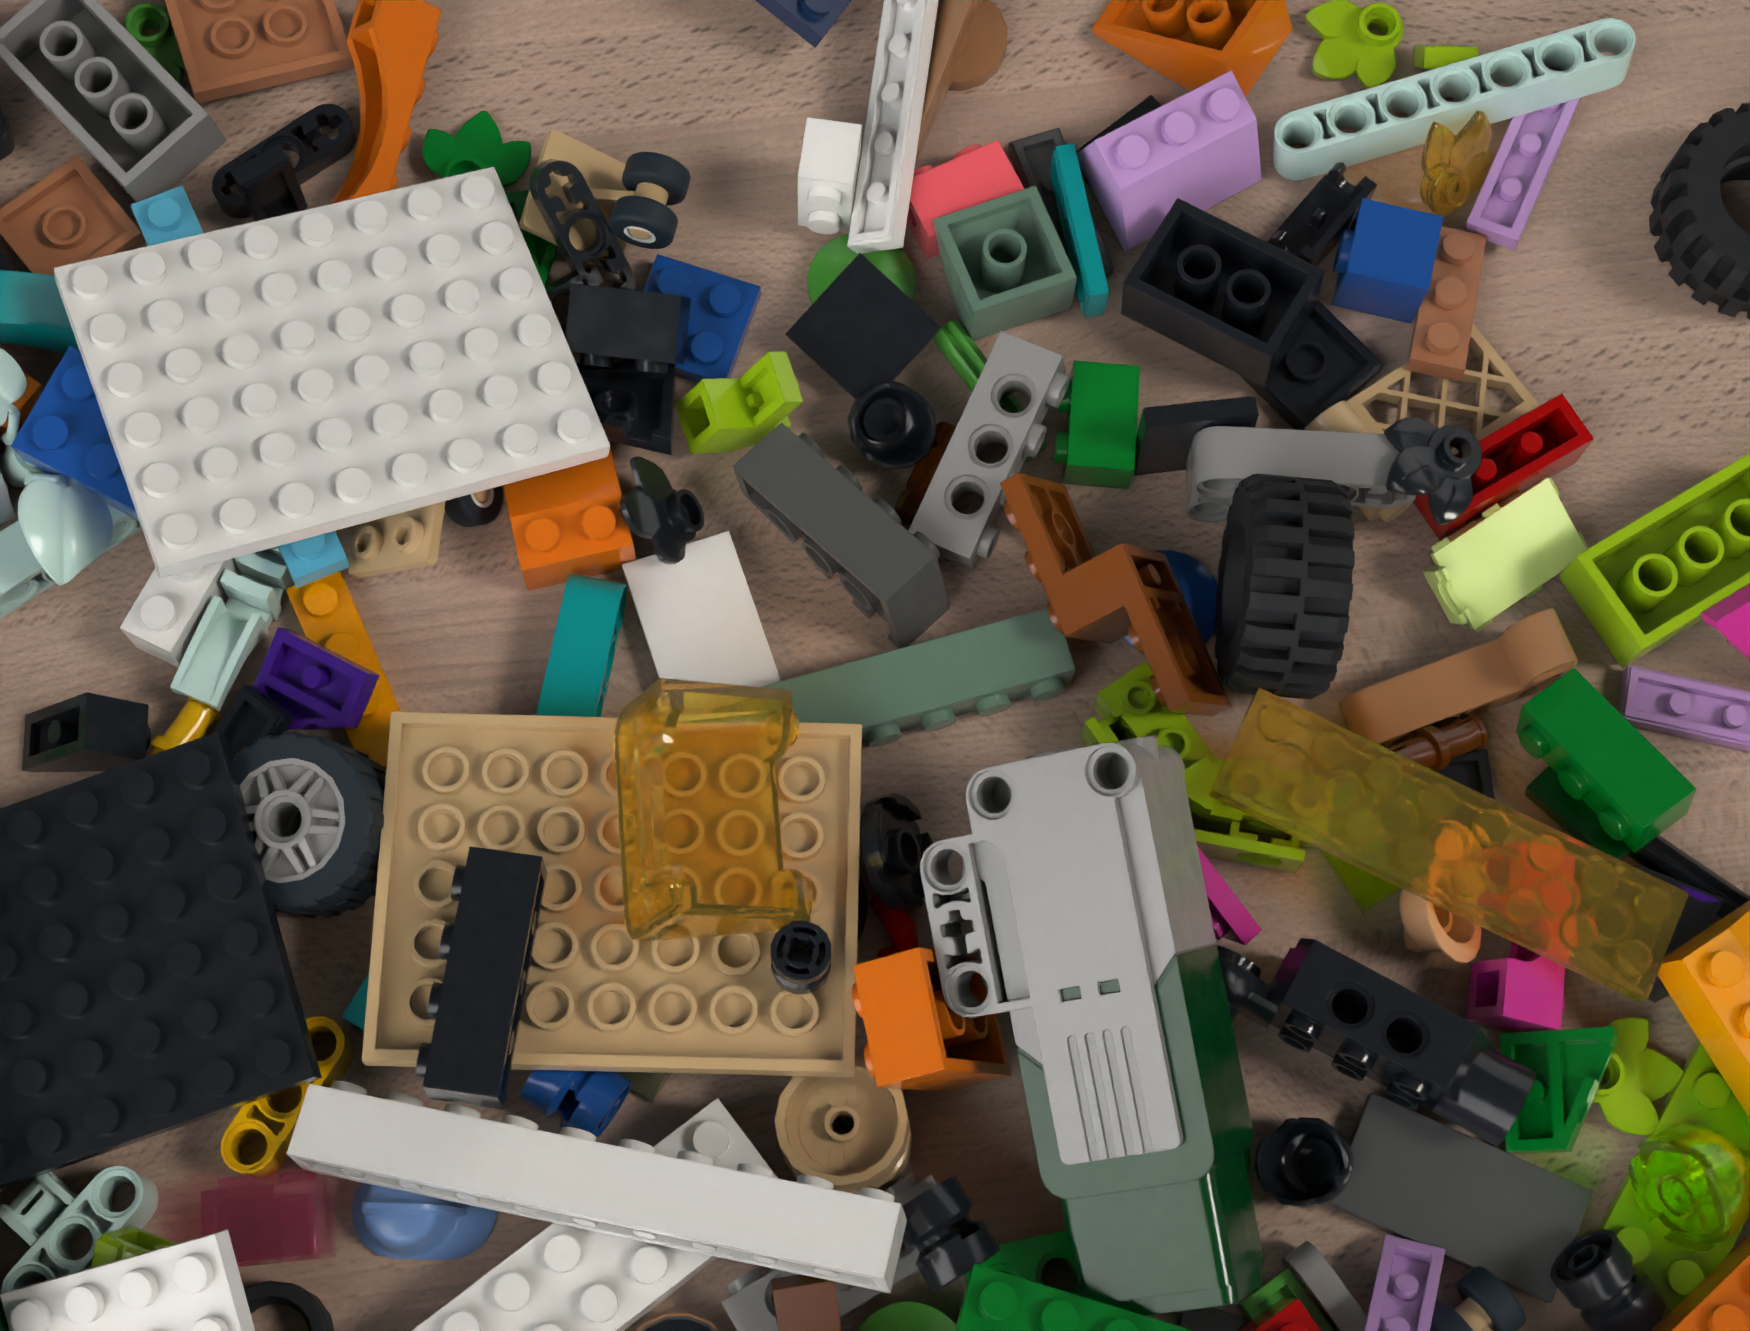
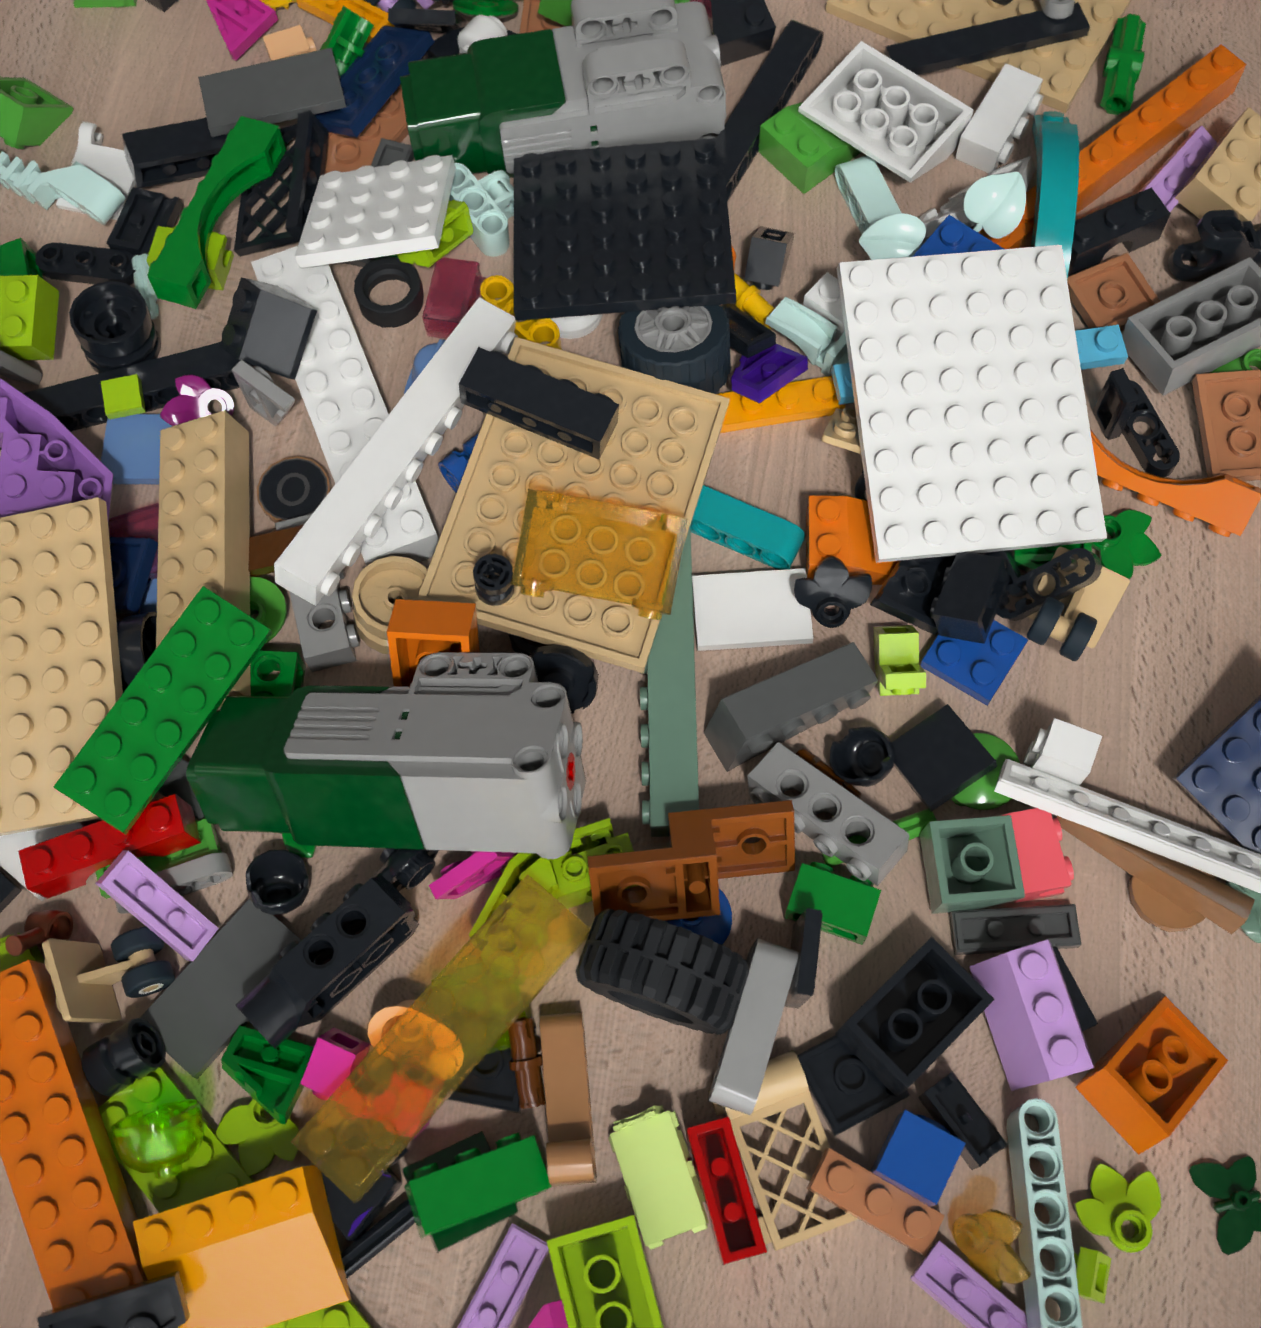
camera: 115 degrees right, 5 degrees down
(945, 1234) = (318, 629): black wheel -> none
(1078, 230) = (987, 924): teal tile -> none
(1431, 468) = (726, 1110): black plate -> none

